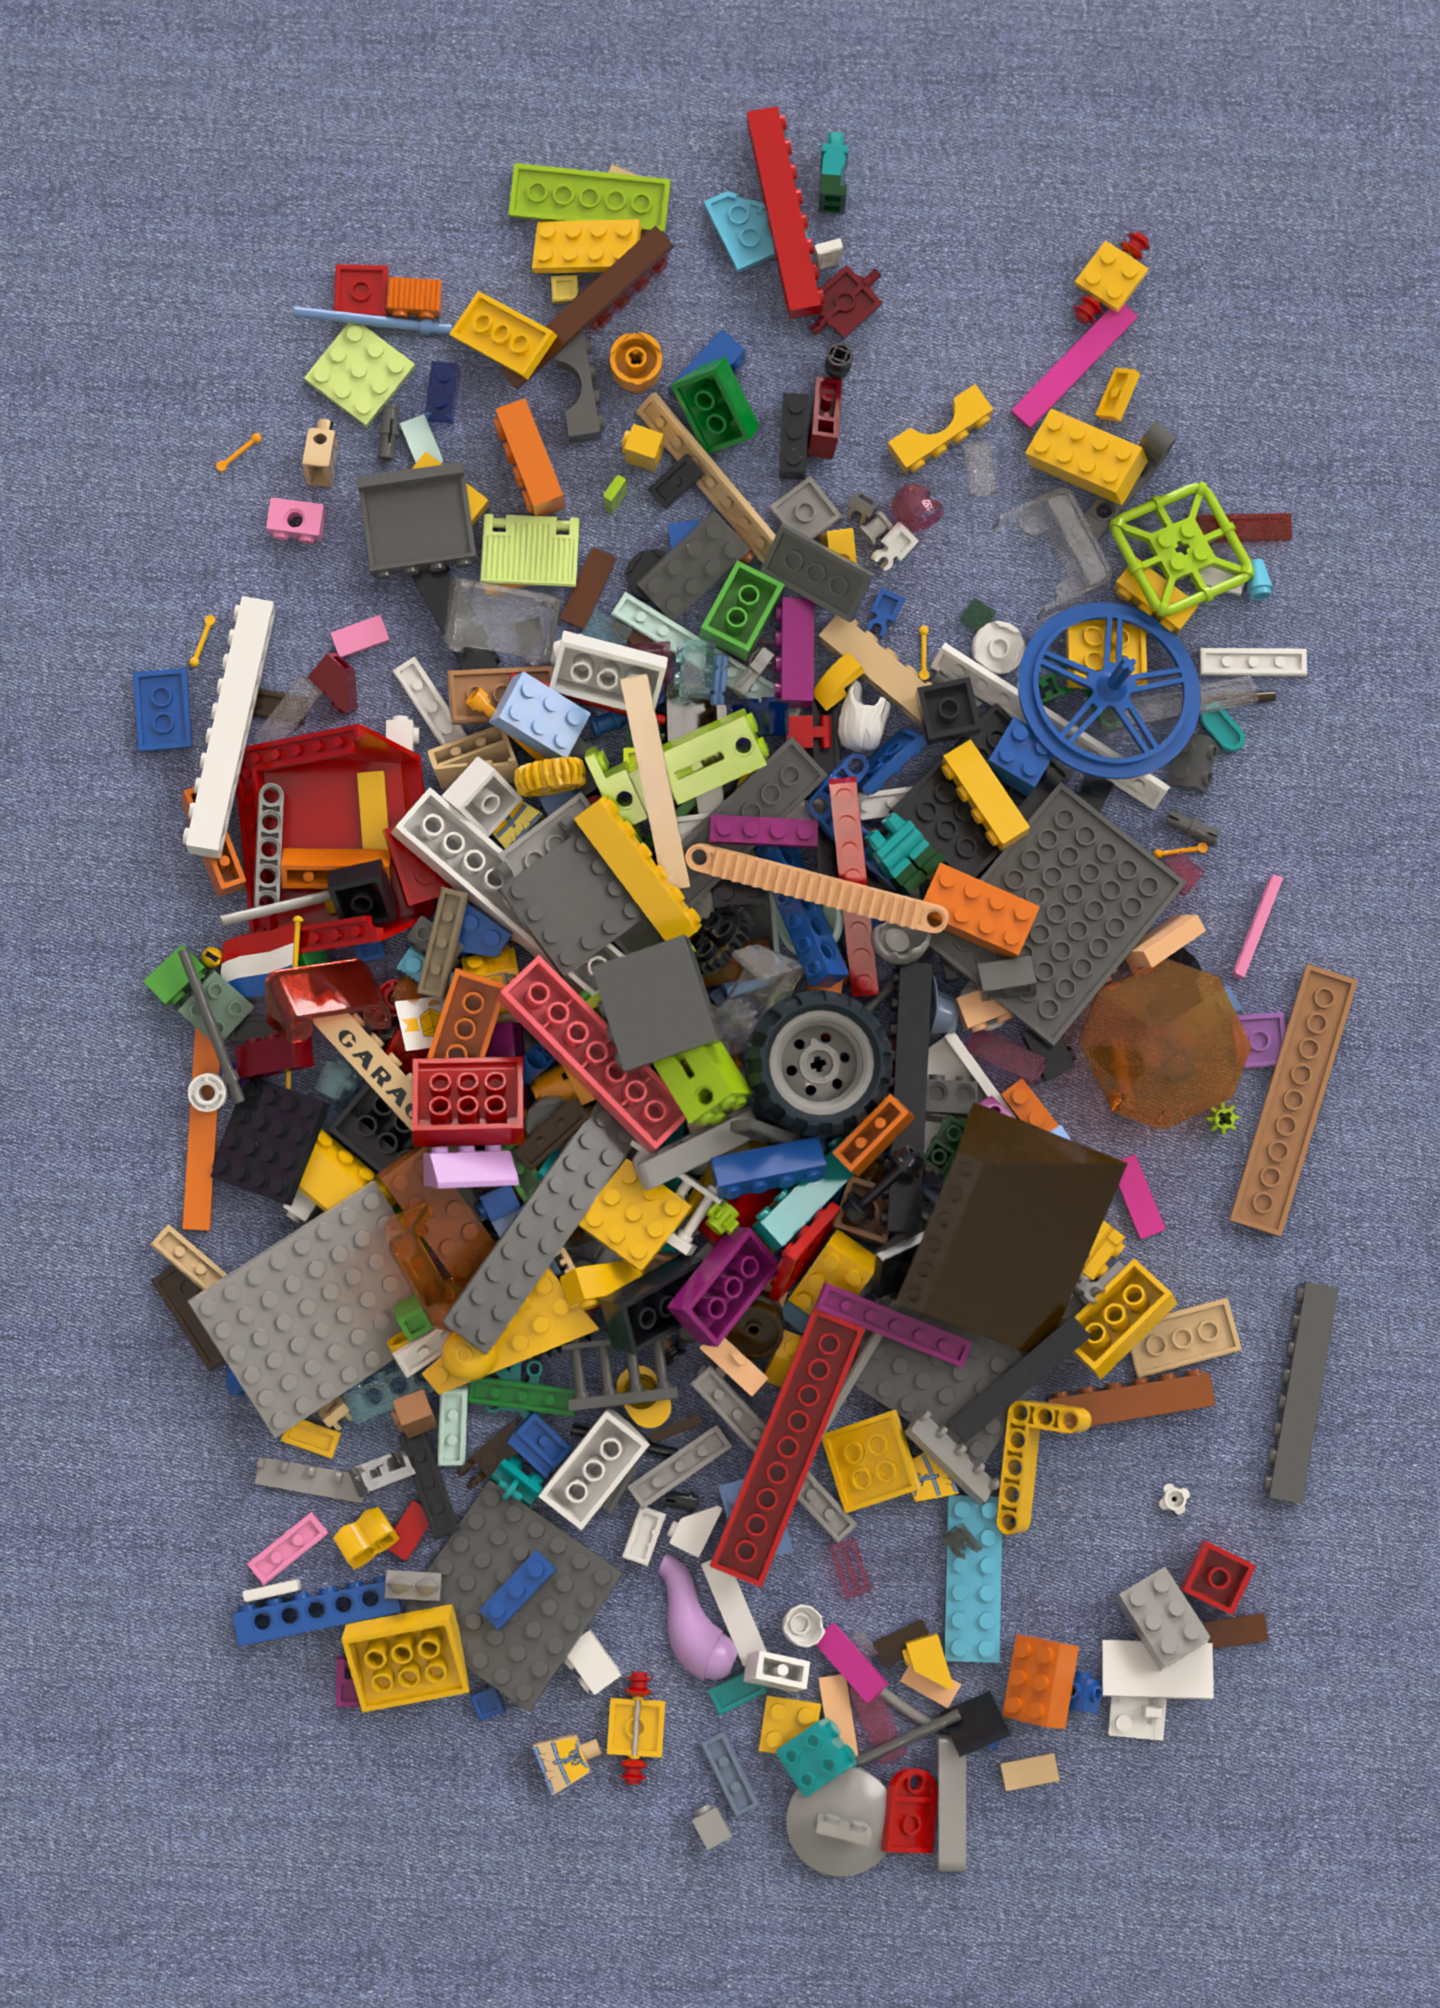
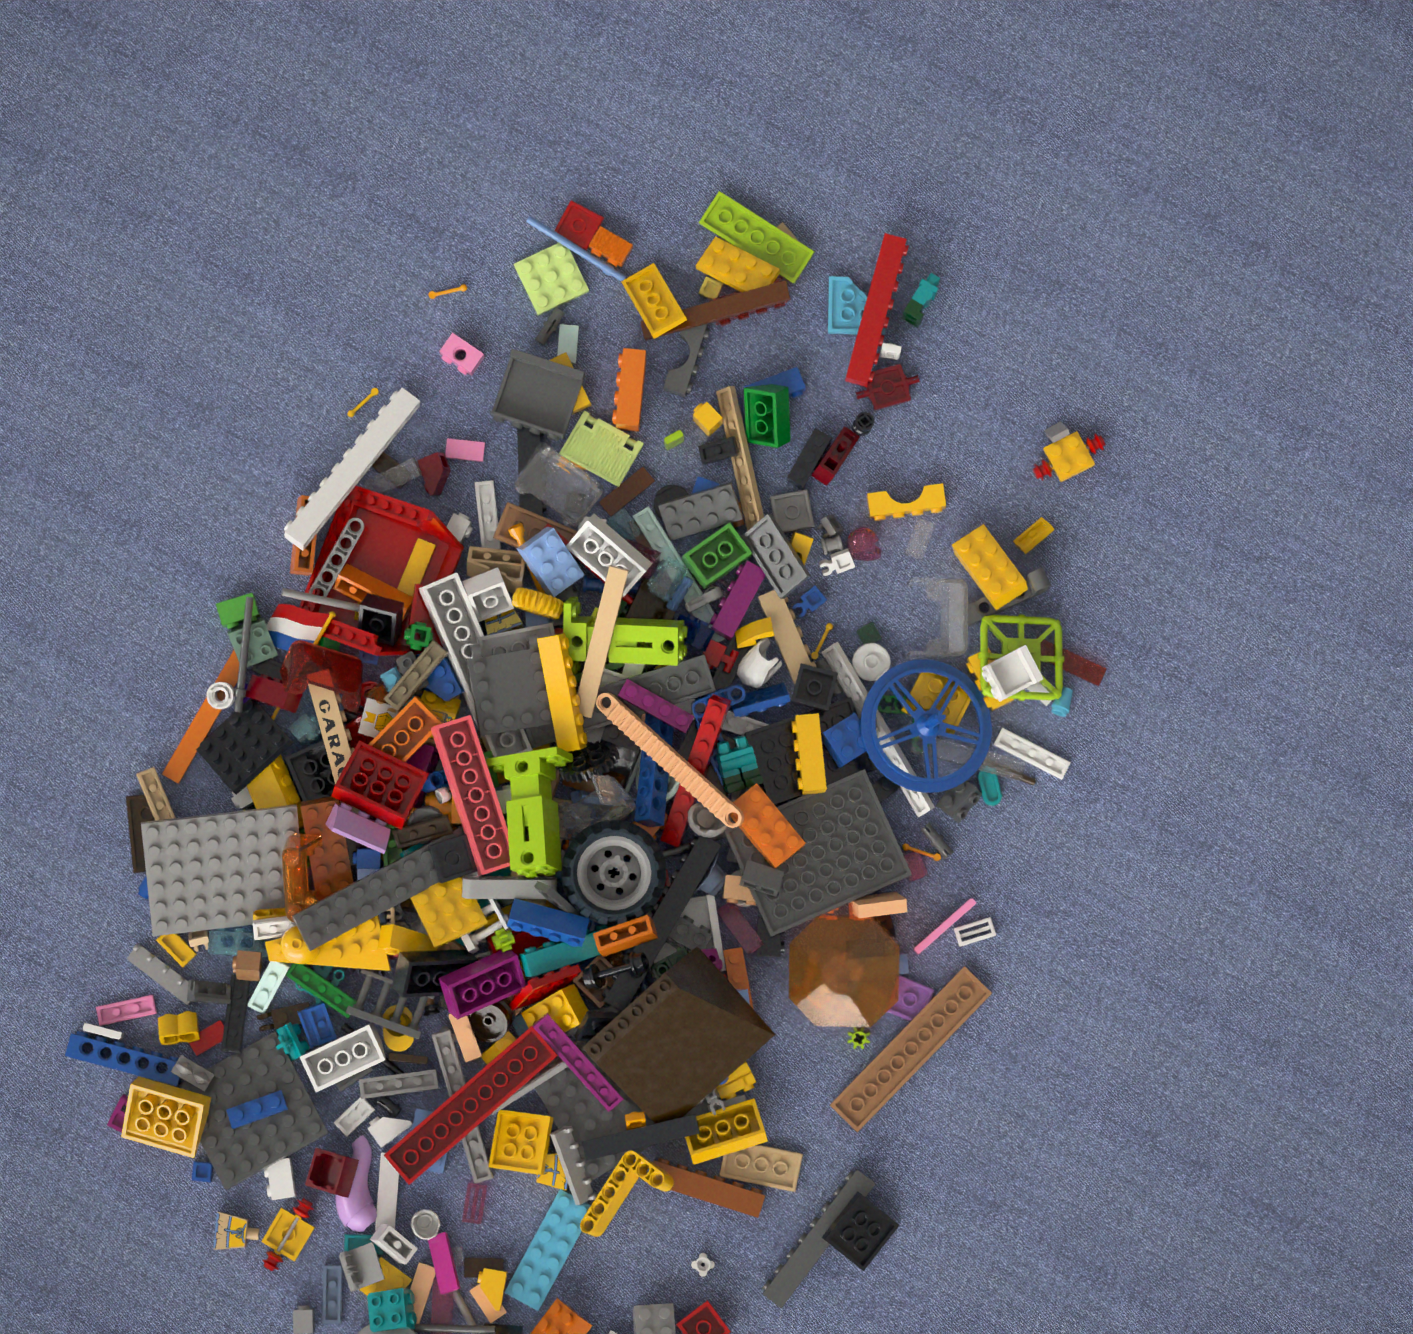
camera: 30 degrees right, 0 degrees up
(162, 710) = (315, 435): blue plate -> none
(208, 962) = (263, 612): yellow hinge -> none
(320, 454) = (498, 319): tan torso -> none
(412, 1318) = (275, 904): bright green brick -> none
(427, 885) = (423, 631): none -> green brick
(442, 392) = (597, 317): clear blue brick -> none
(553, 1075) = (443, 795): none -> white hinge
(607, 1147) = (452, 858): none -> black plate
(633, 347) = (737, 351): light orange brick -> none
(652, 1621) = (332, 1172): none -> dark red container
(655, 1003) = (527, 783): dark grey panel -> none
(750, 1721) = (361, 1266): none -> light grey hinge
(957, 1537) = (549, 1218): clear smoke hinge -> none
(1001, 1361) = (635, 1120): none -> light orange plate
(1073, 365) = (1014, 502): dark pink tile -> none
(1081, 254) = (1057, 432): none -> light grey tile
(1139, 1200) = (779, 1061): dark pink tile -> none
(1183, 571) = (1011, 673): none -> white panel
(1280, 931) = (990, 927): none -> white tile
(1350, 1357) = (860, 1231): none -> black plate

